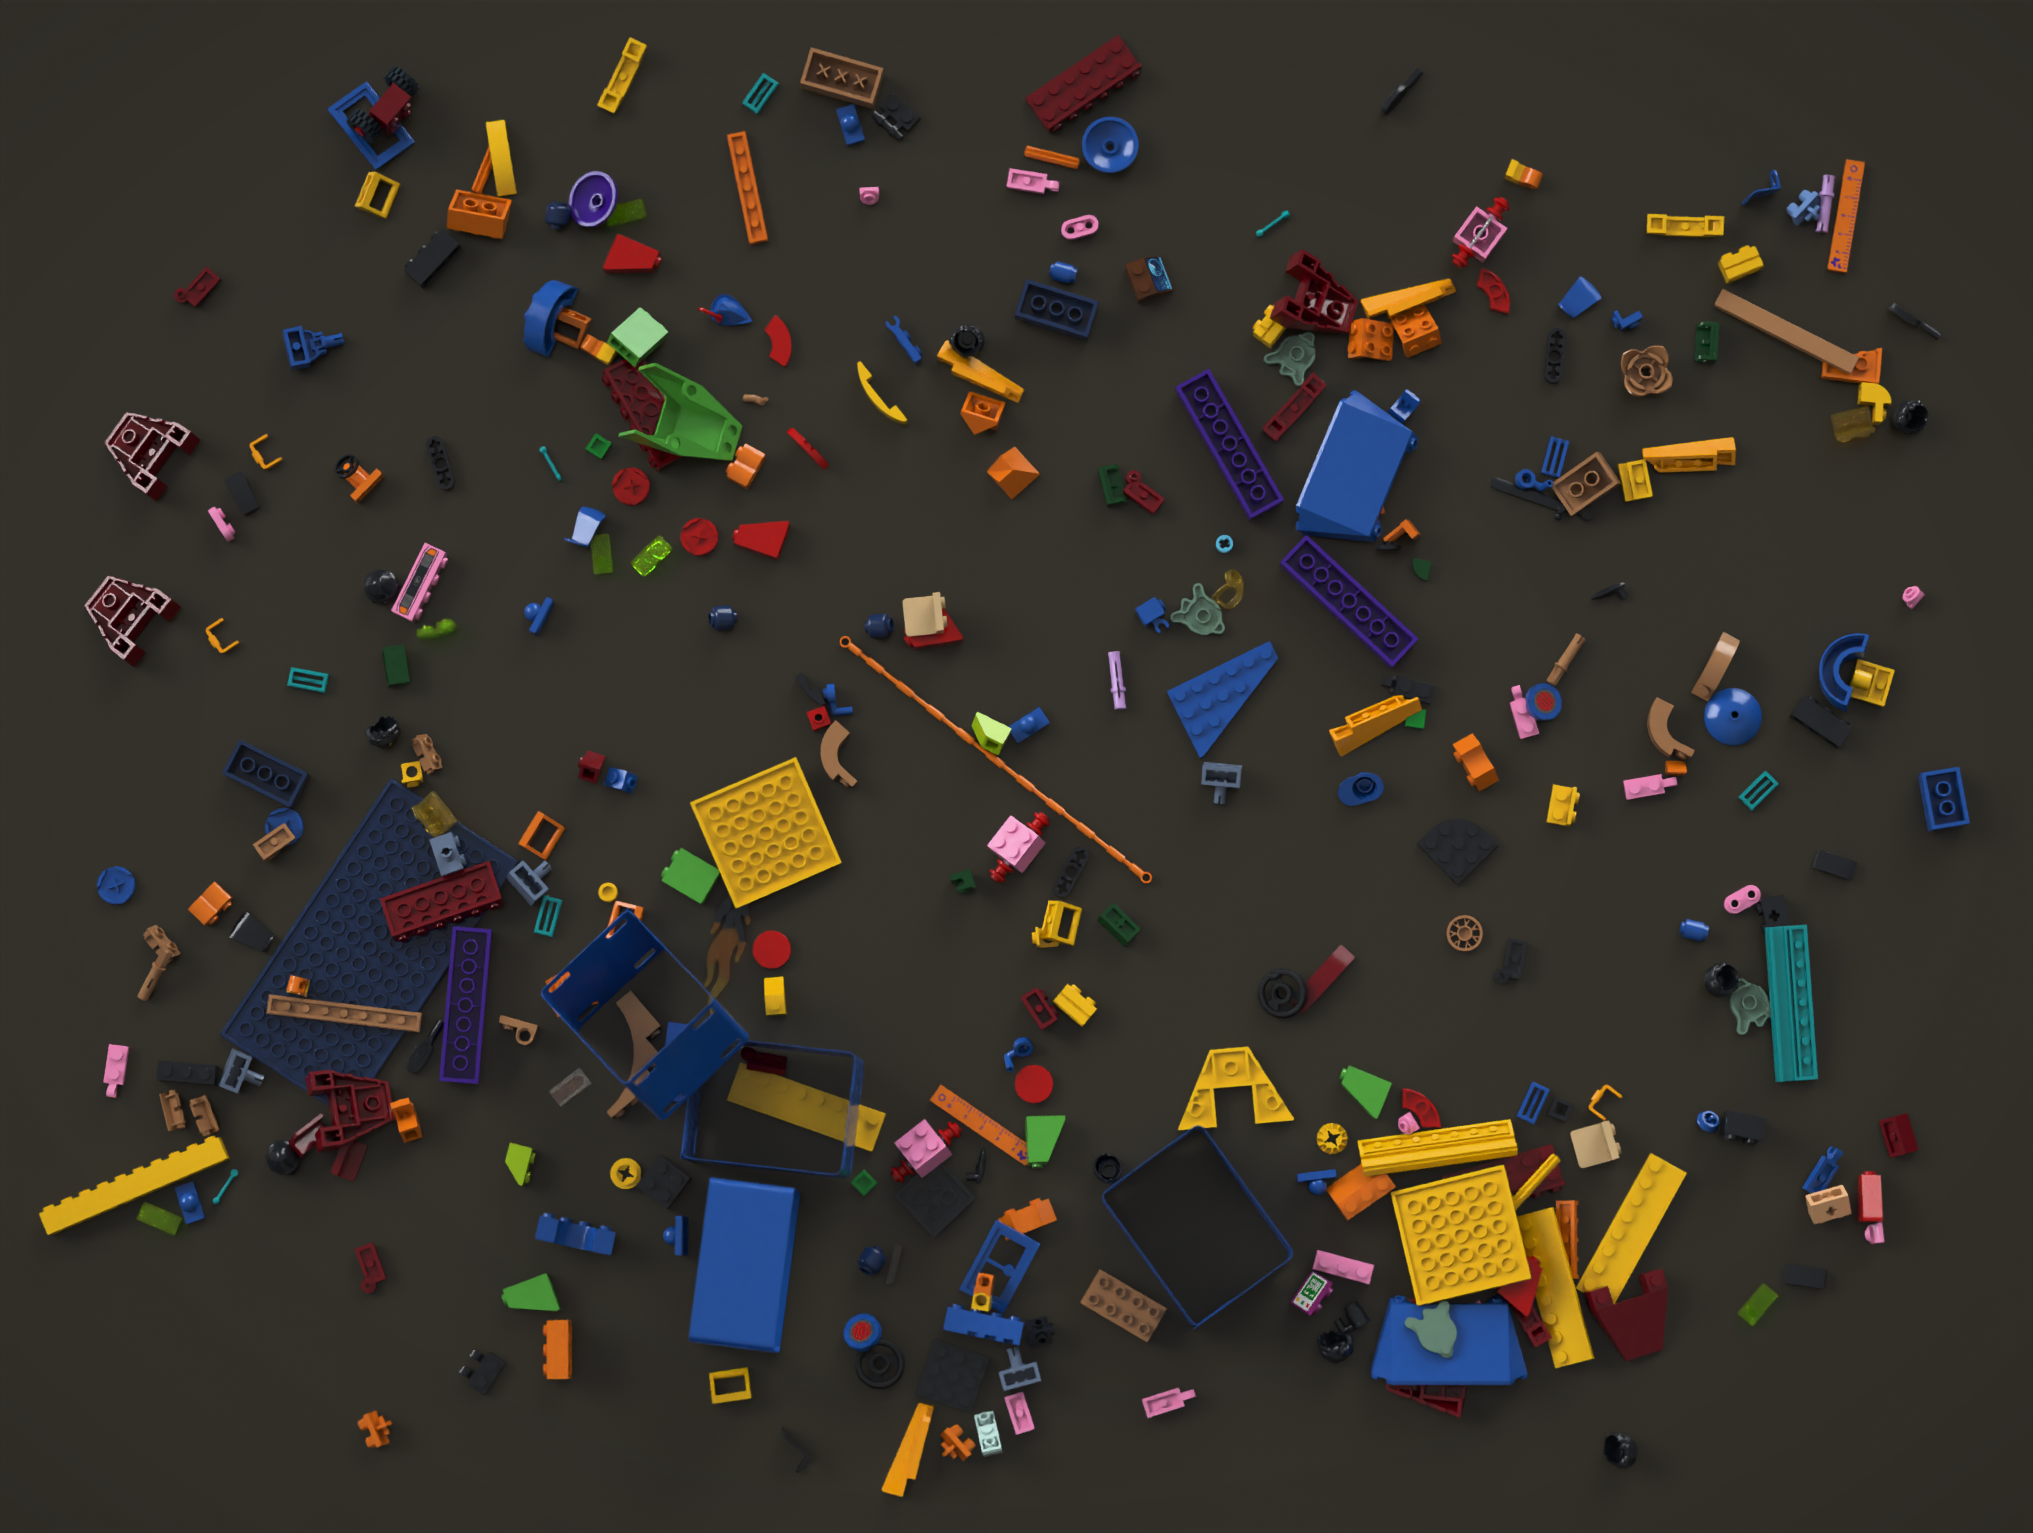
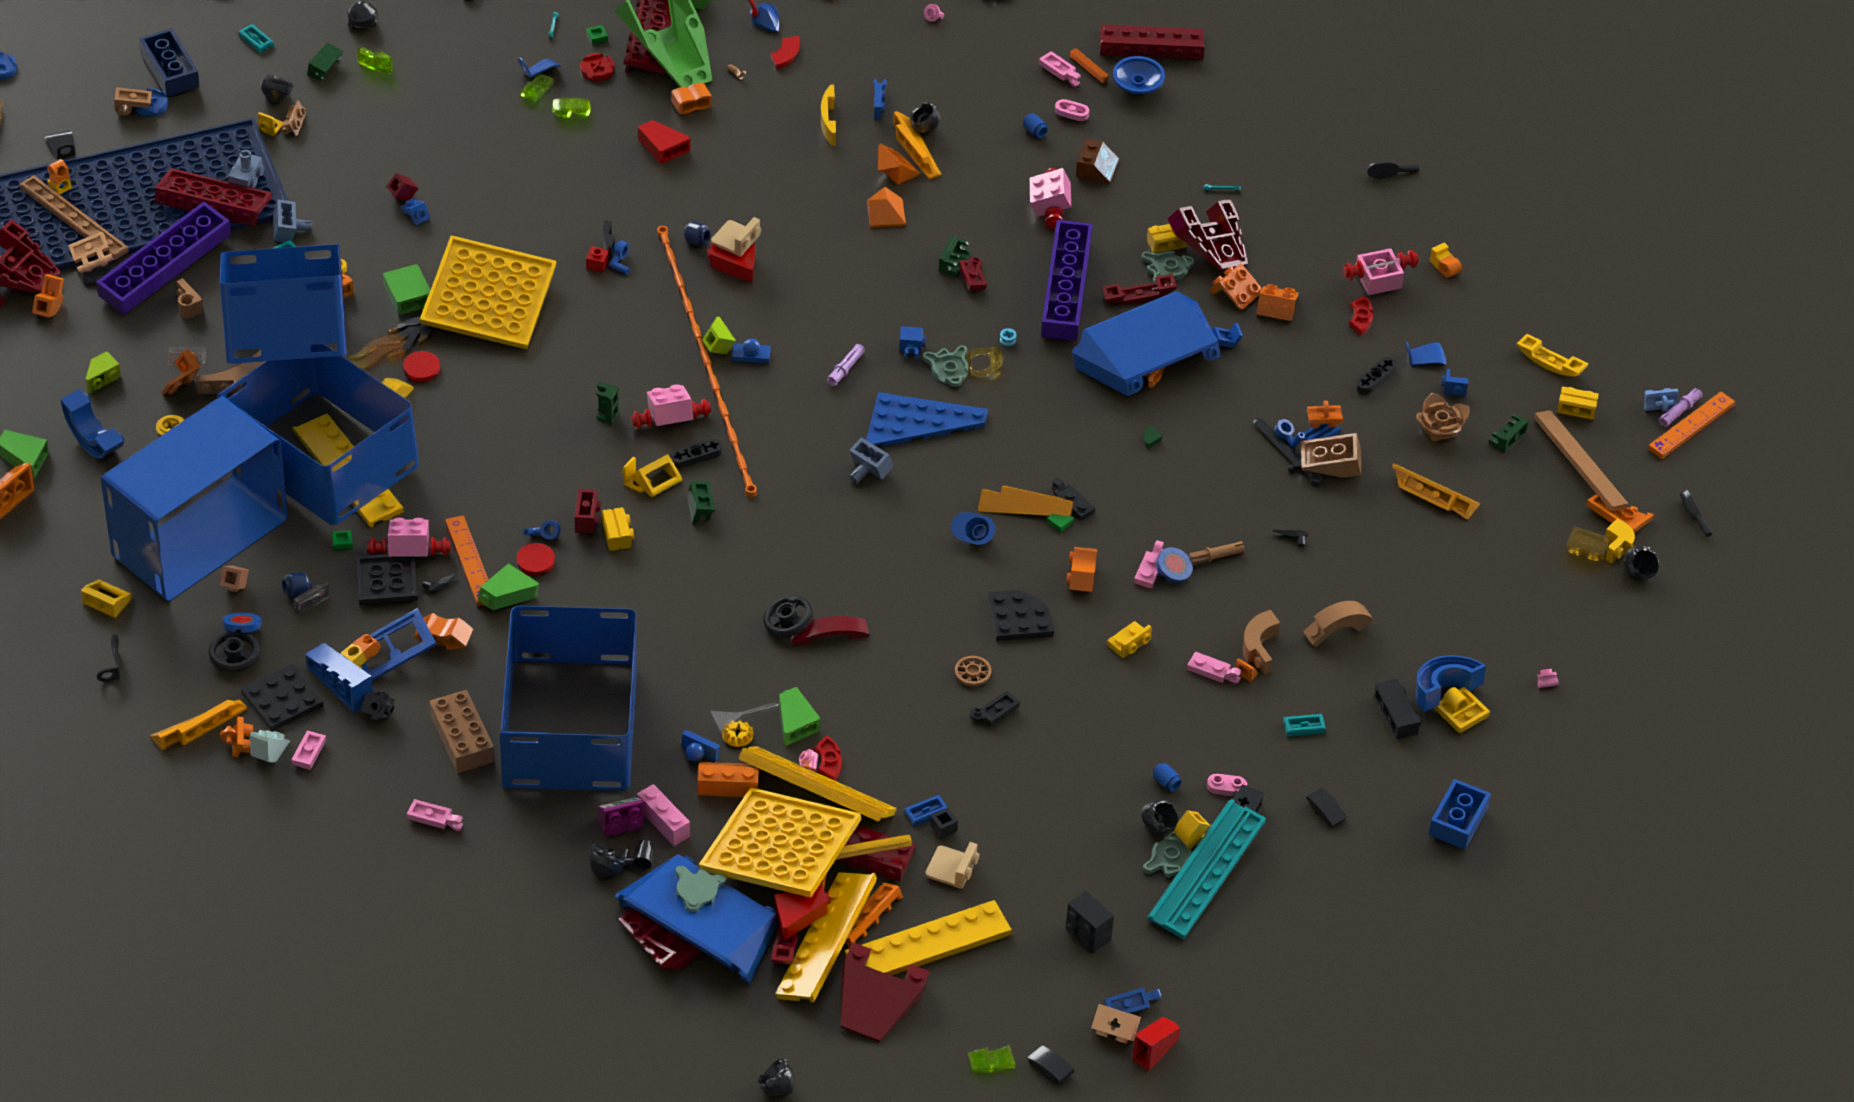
camera: 30 degrees right, 35 degrees down
(211, 904) = (51, 108): orange brick -> none
(394, 1041) = (88, 248): none -> light nougat plate
(419, 583) = (391, 29): brick -> none
(434, 815) = (262, 145): clear yellow bracket -> none
(533, 829) = (323, 199): orange tile -> none
(538, 614) = (456, 92): blue tile -> none
(596, 1120) = (188, 366): none -> orange bracket
(699, 537) = (617, 119): red tile -> none
(722, 617) = (586, 165): dark blue head -> none
(764, 1061) = (345, 422): dark red hinge -> none
(812, 452) = (746, 111): red tile -> none
(817, 1294) = (233, 578): none -> nougat brick
(830, 746) = (586, 279): medium nougat arch -> none
(1019, 1373) = (334, 721): sand blue brick -> none
(1056, 310) = (1009, 138): dark blue brick -> none
(1142, 352) = (1050, 195): none -> bright pink brick
(1233, 1069) = (696, 639): yellow wing -> none
(1310, 1128) = (723, 718): none -> clear piece
(1348, 602) = (1072, 417): dark purple brick -> none
(1406, 299) = (1303, 286): light orange wedge -> none
(1406, 526) = (1149, 397): orange piece -> none
(1552, 444) = (1324, 414): none -> orange hips
(1597, 1096) = (989, 837): light orange piece -> none
(1635, 480) = (1374, 480): yellow plate -> none
(1708, 1121) = (1060, 907): blue hat -> none
(1725, 727) = (1325, 668): blue dish -> none
(1757, 976) = (1191, 828): none -> yellow brick
(1762, 192) = (1630, 369): blue piece -> none
(1875, 1234) = (1138, 1071): bright pink plate -> none
(1898, 1135) = (1222, 1017): dark red panel -> none

